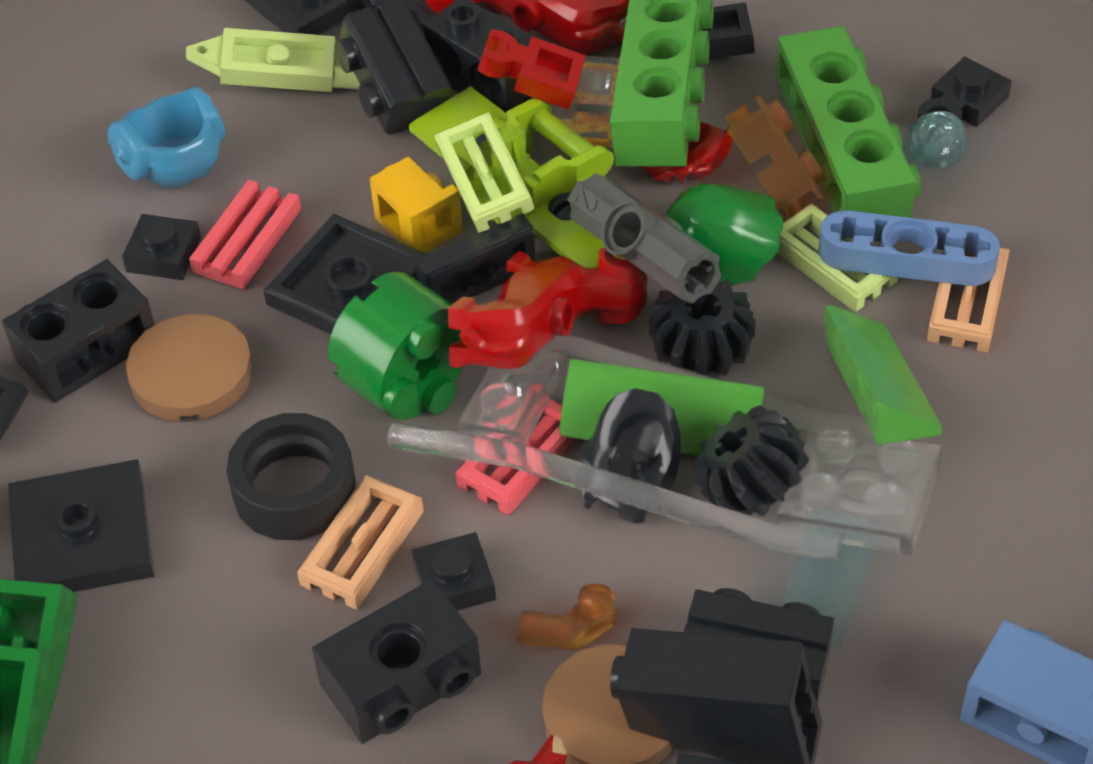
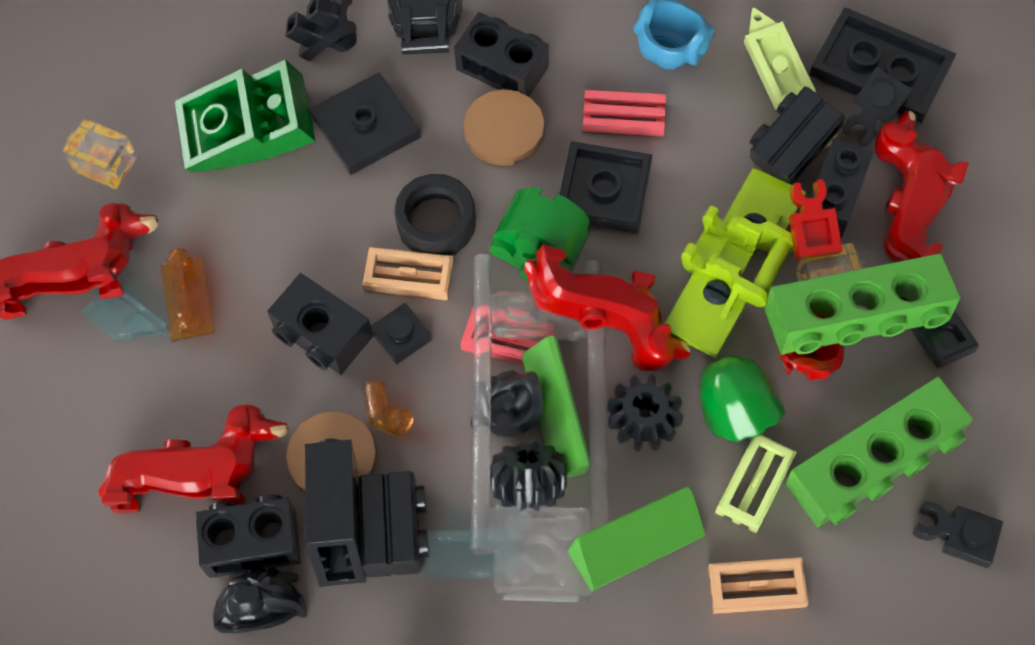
camera: 70 degrees right, 15 degrees up
(161, 246) = (594, 70): black plate -> none
(416, 205) = (680, 199): yellow brick -> none
(476, 260) = (644, 254): black plate -> none
(499, 205) = (706, 231): yellowish green tile -> none
(644, 238) = (680, 345): dark grey piece -> none
(791, 172) = (815, 428): clear orange hinge -> none
(885, 260) = (764, 564): medium blue beam -> none
(938, 139) = (896, 523): clear light blue plate -> none

